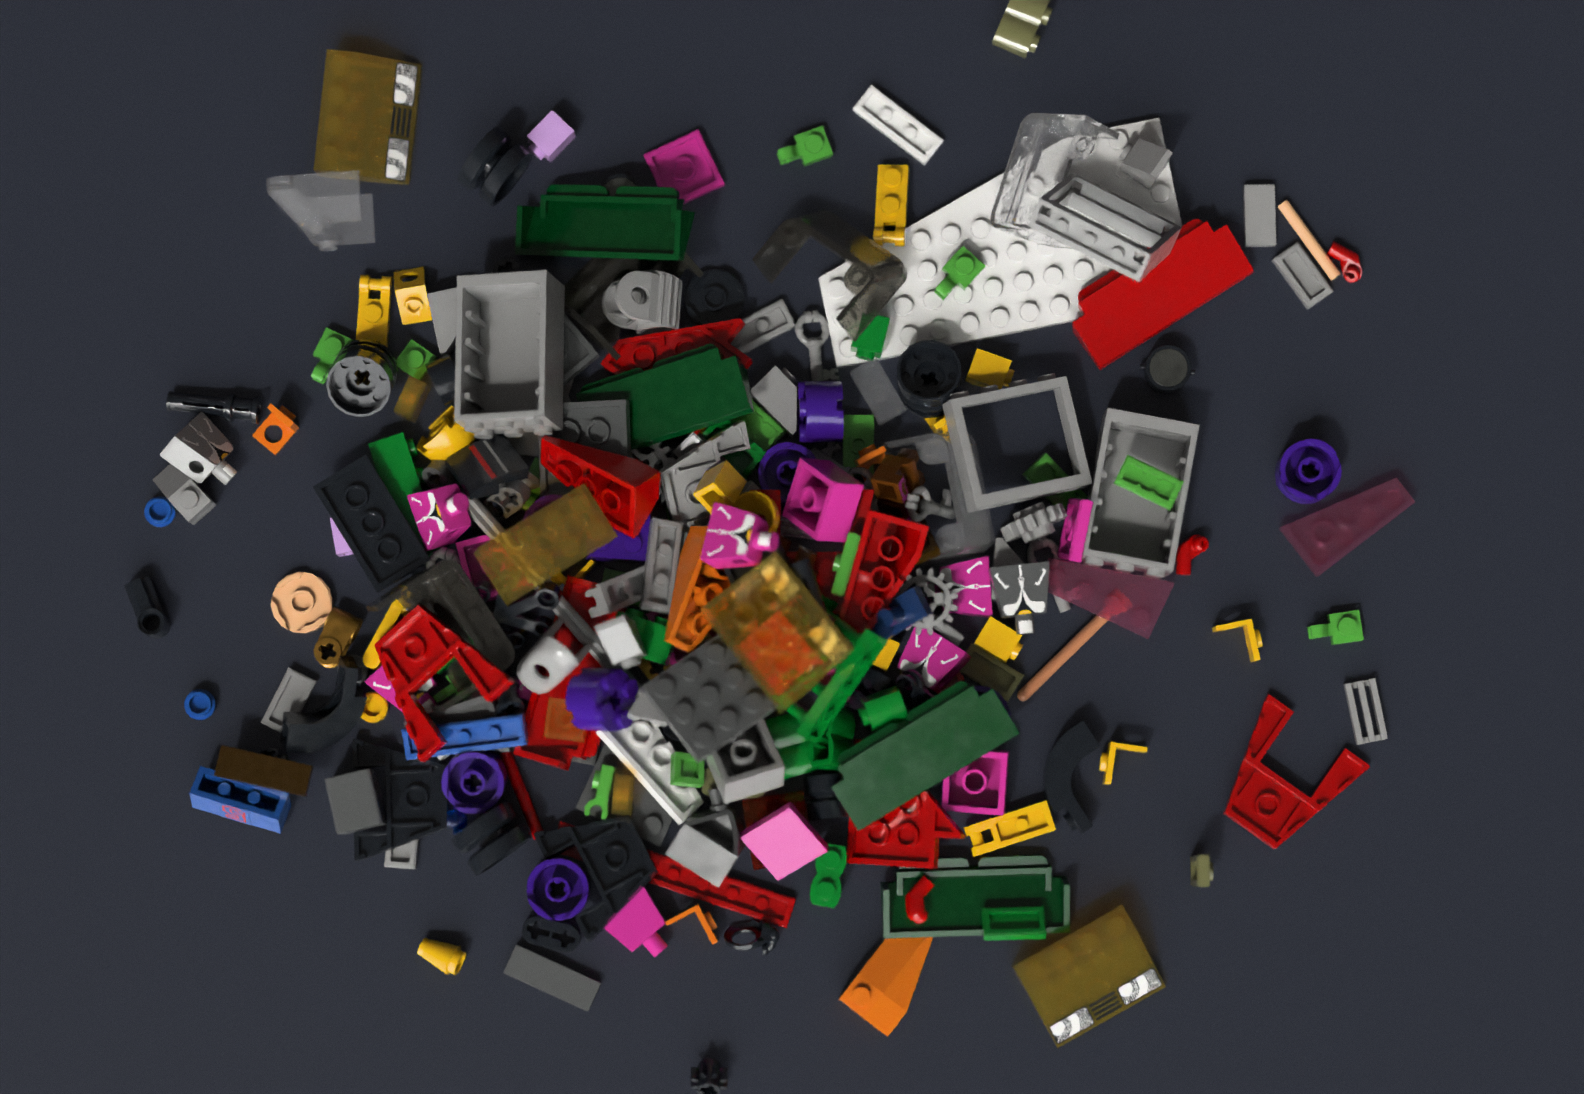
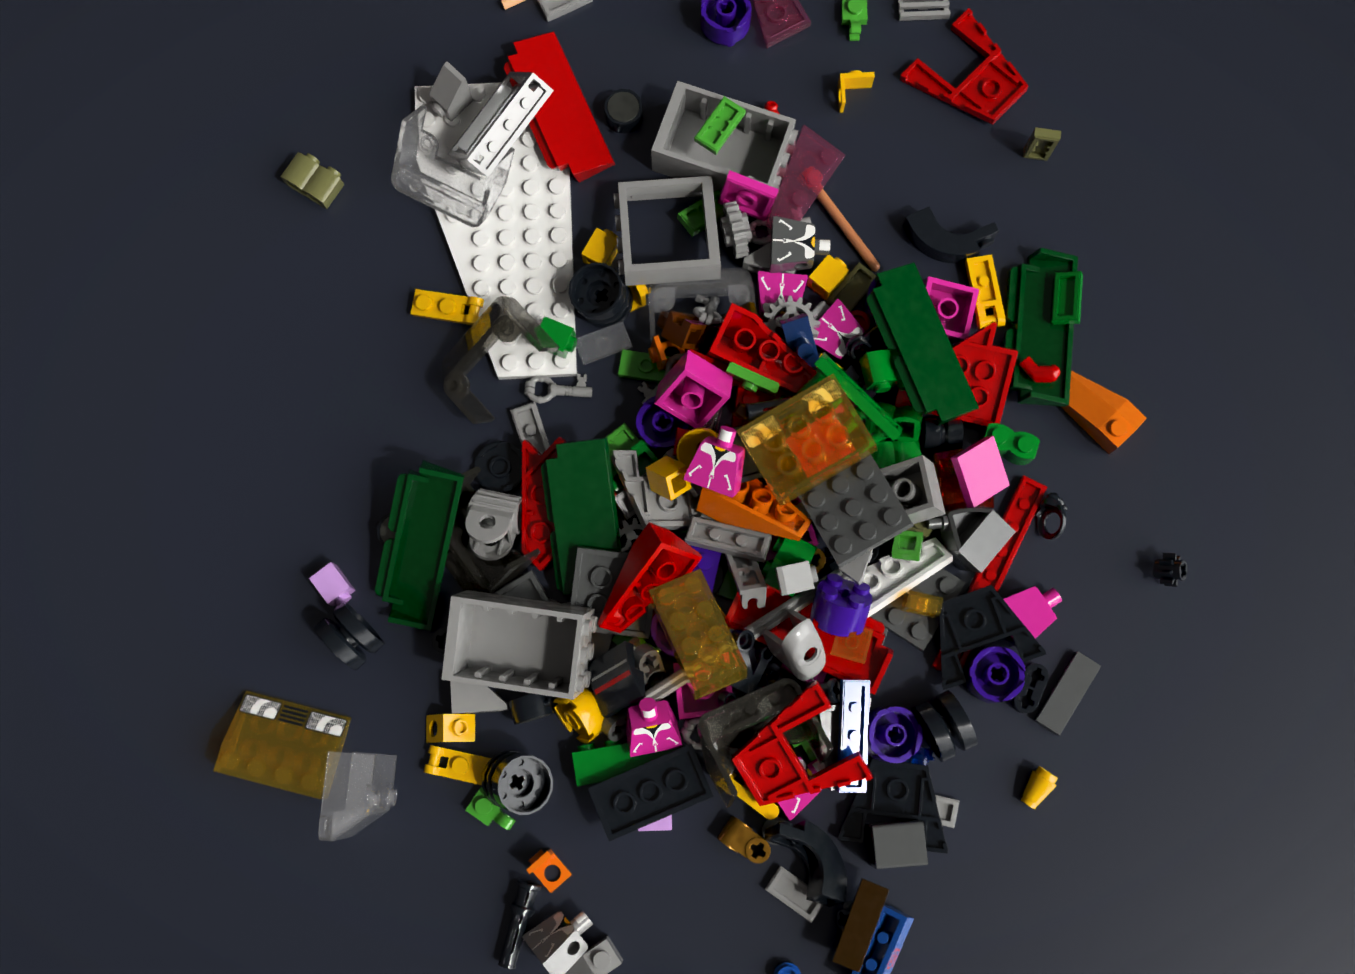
camera: 80 degrees left, 5 degrees down
(301, 602) = (708, 869): light nougat tile -> none
(375, 708) = (812, 814): yellow tile -> none
(412, 399) = (543, 741): clear yellow piece -> none
(413, 360) = (508, 734): bright green plate -> none
(521, 792) = (907, 695): red bar -> none
(603, 783) = (908, 620): bright green plate -> none
(685, 166) = (378, 474): dark pink tile -> none
(705, 918) = (1025, 566): orange bracket -> none
(778, 398) = (596, 422): light grey slope -> none
(810, 147) = (383, 369): bright green plate -> none
(820, 411) = (613, 388): dark purple brick -> none
(898, 125) = (380, 294): white tile -> none
(960, 271) = (513, 258): bright green plate -> none
(1089, 976) = (1111, 249): clear yellow slope -> none
(1107, 759) = (938, 204): yellow bracket -> none
(1259, 215) = (509, 23): light grey tile -> none

